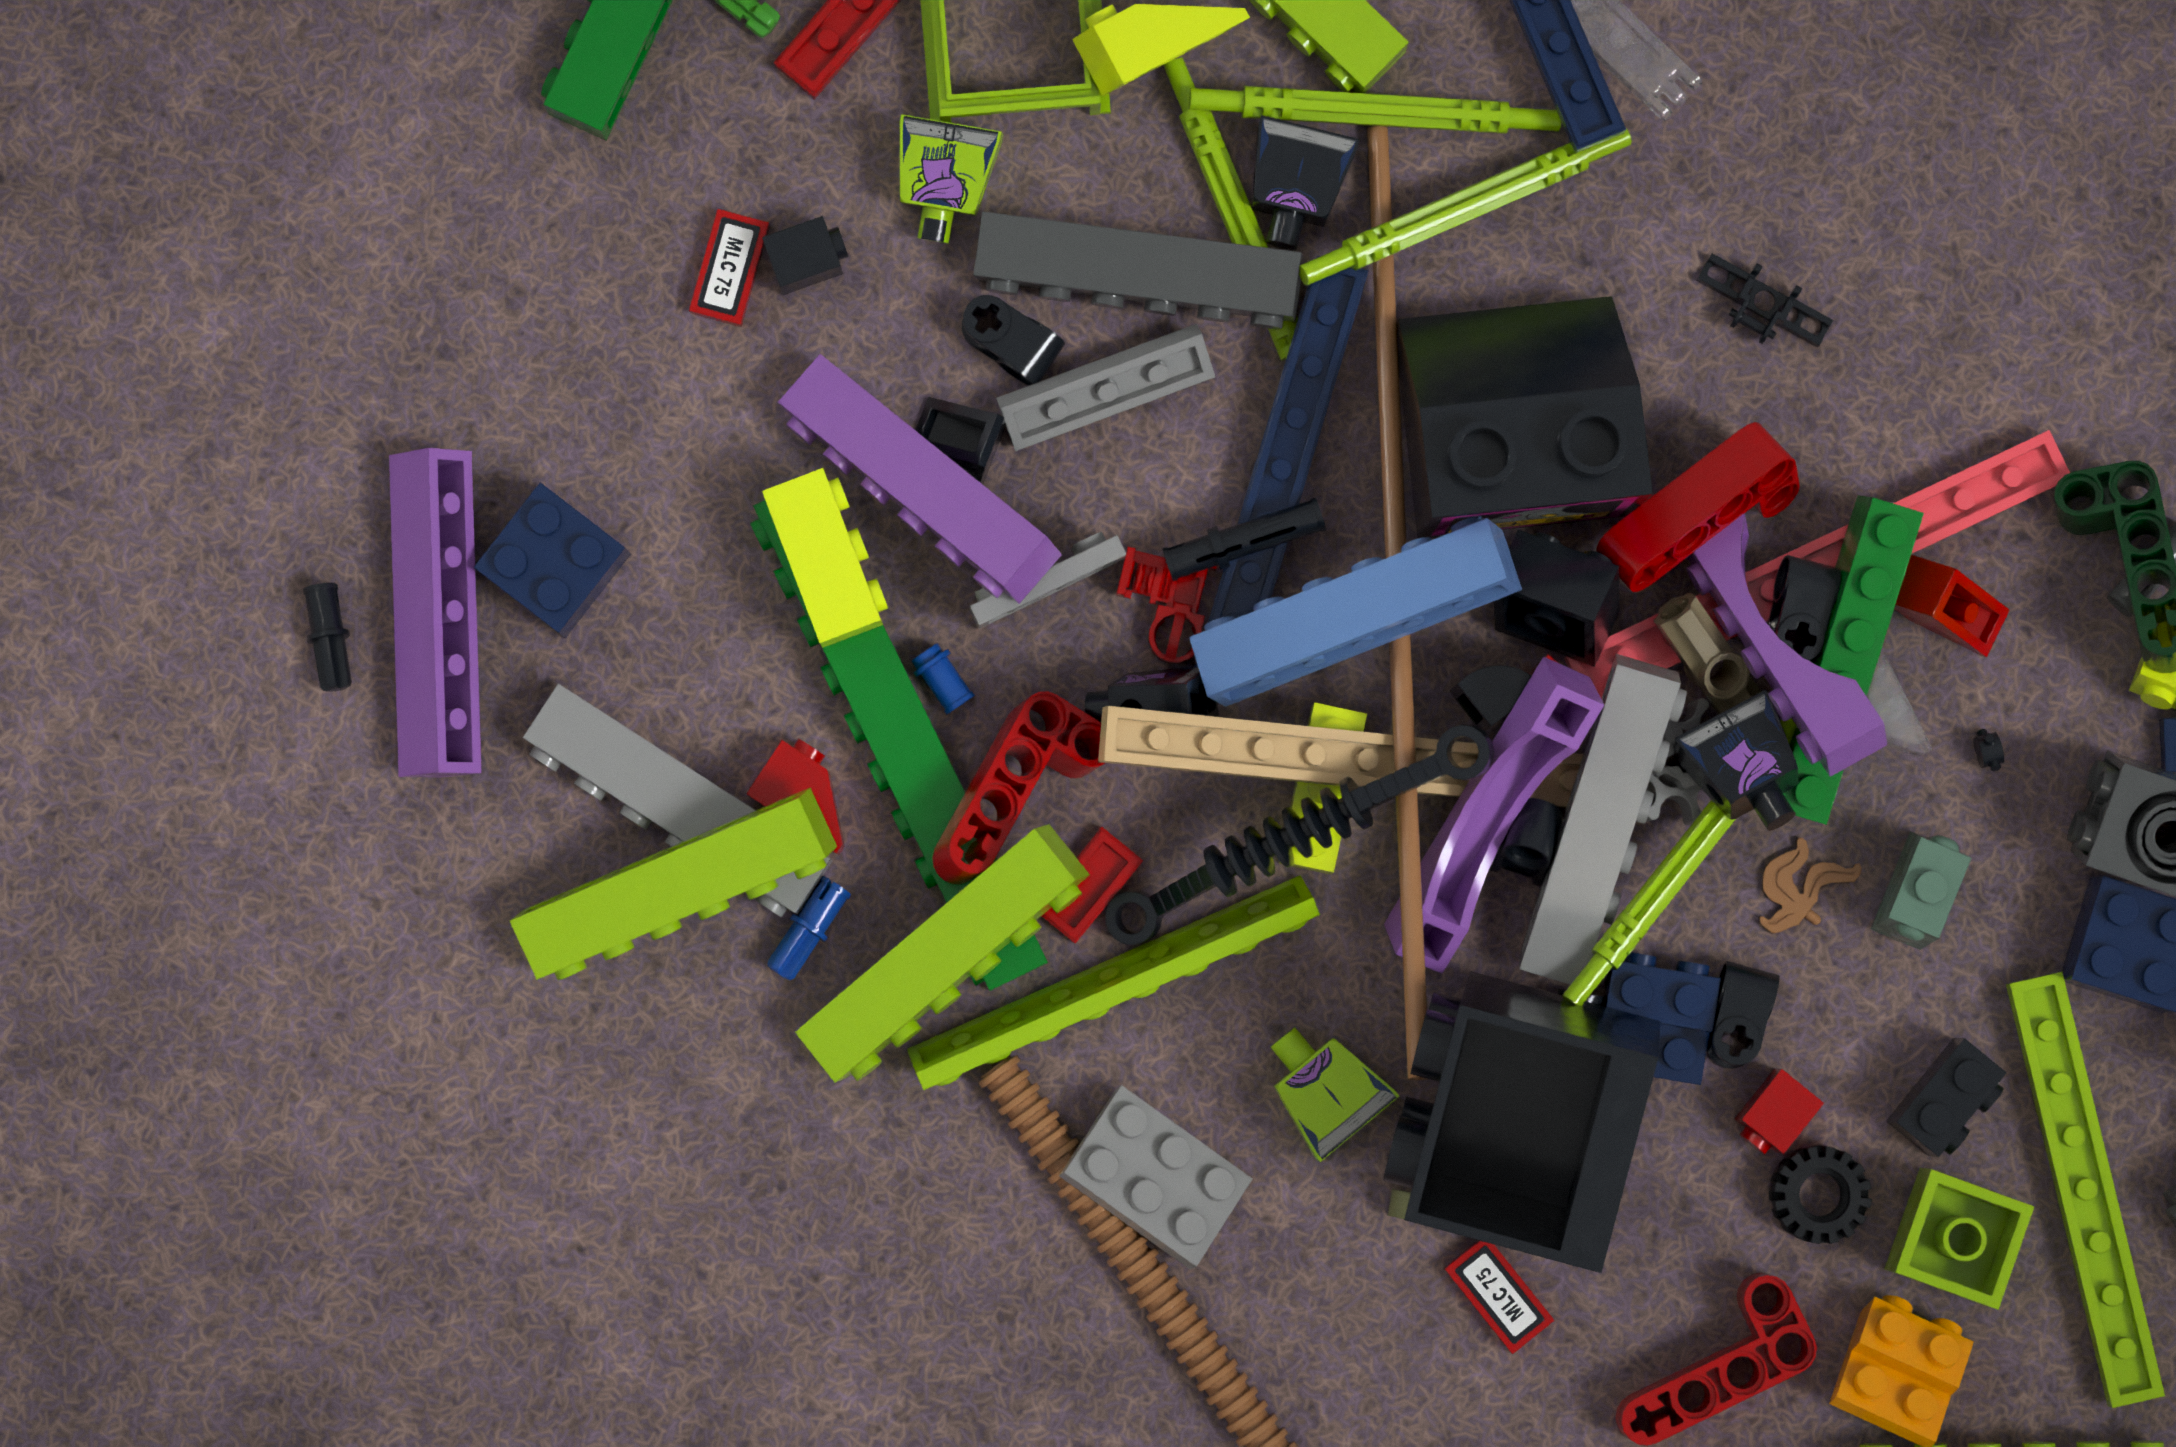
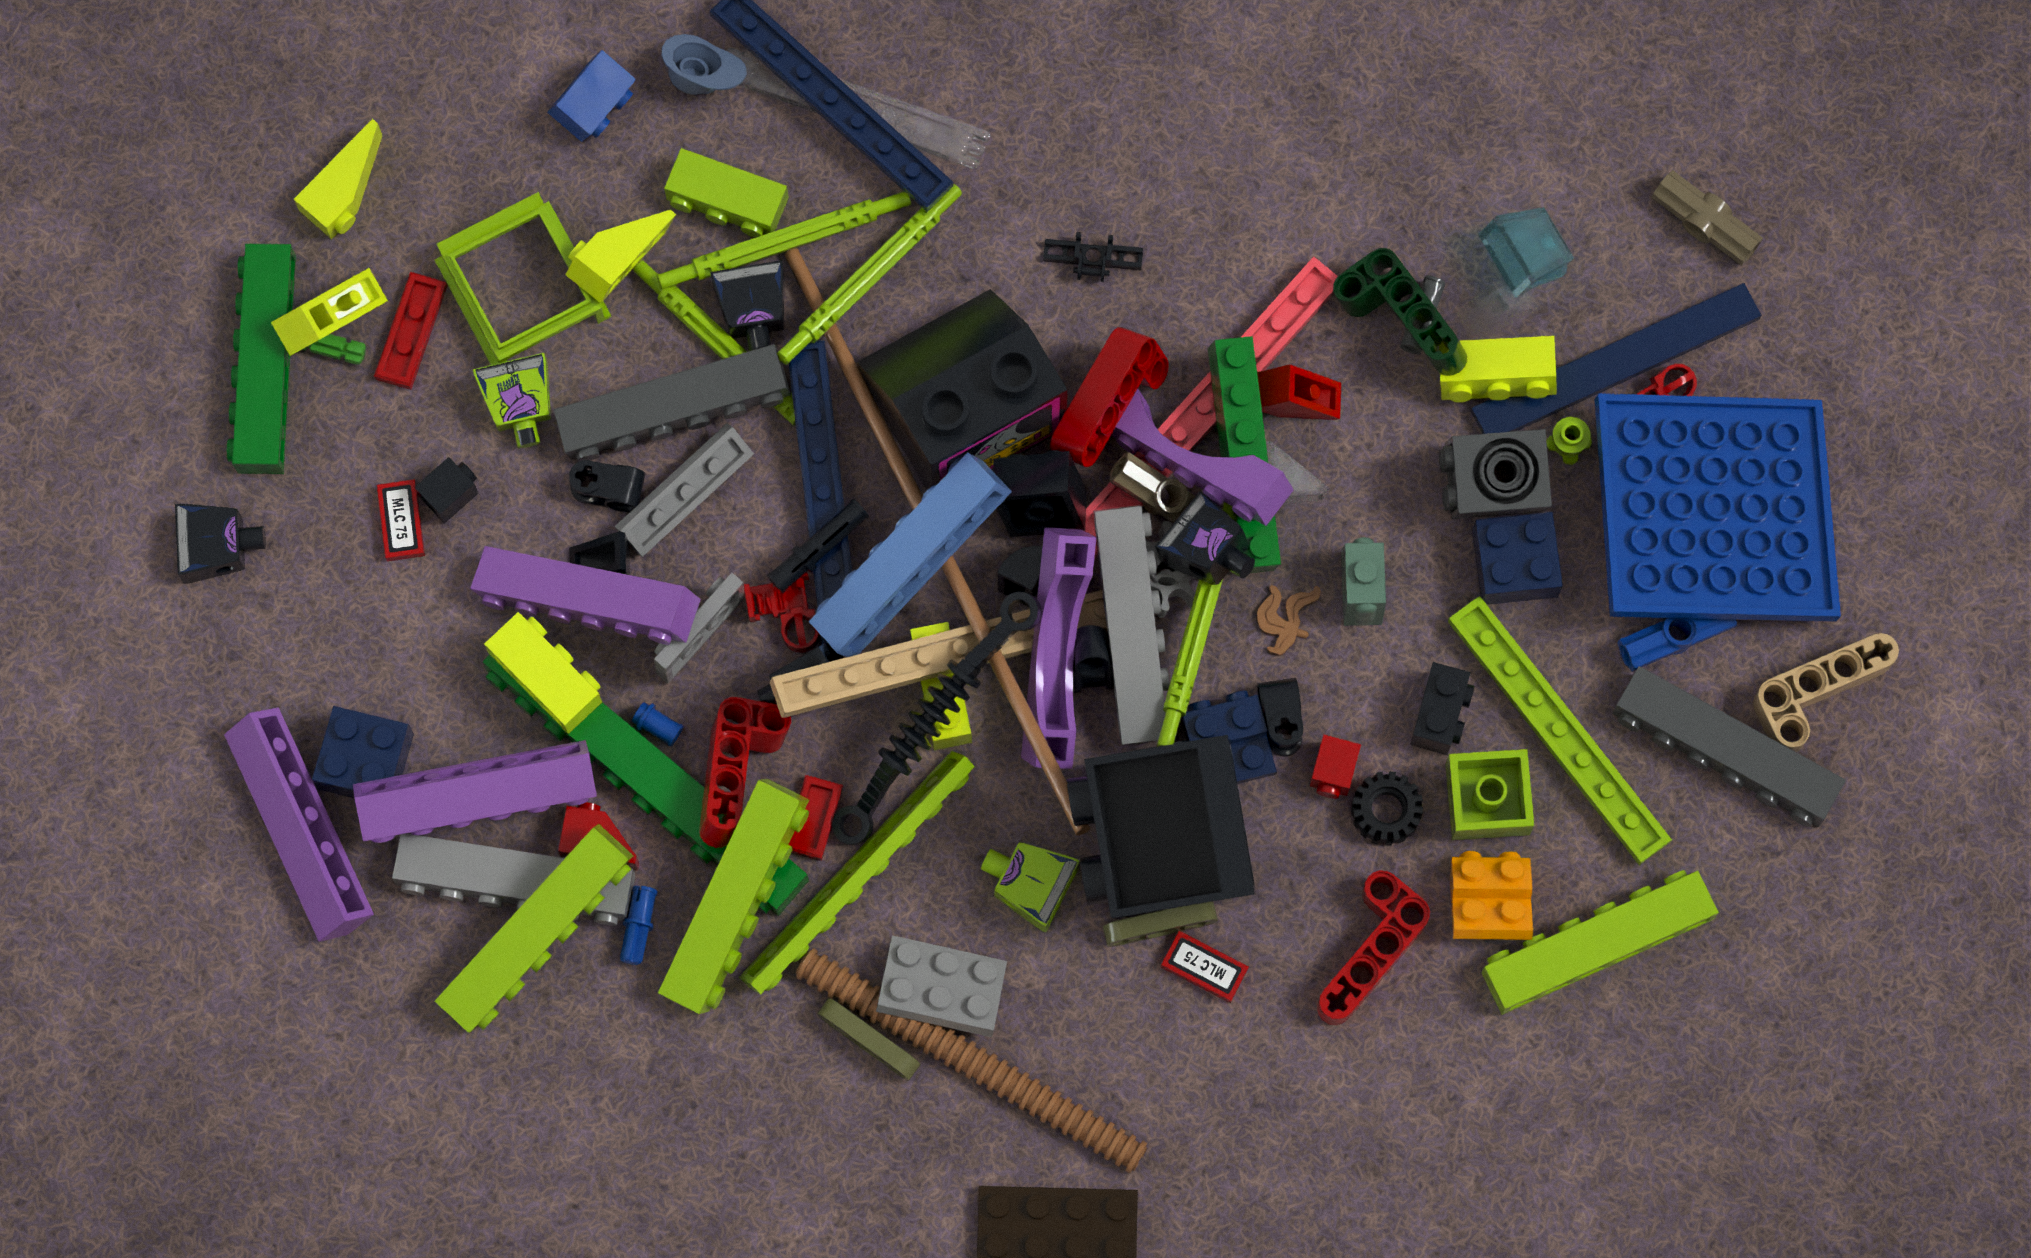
camera: 20 degrees left, 10 degrees down
(328, 636) = (232, 872): black axle -> none
(478, 193) = (212, 541): none -> black torso
(671, 674) = (474, 791): none -> medium lavender brick
(1035, 1203) = (868, 1039): none -> olive beam
(1804, 602) = (1202, 426): black piece -> none
(1988, 750) = (1367, 476): black piece -> none

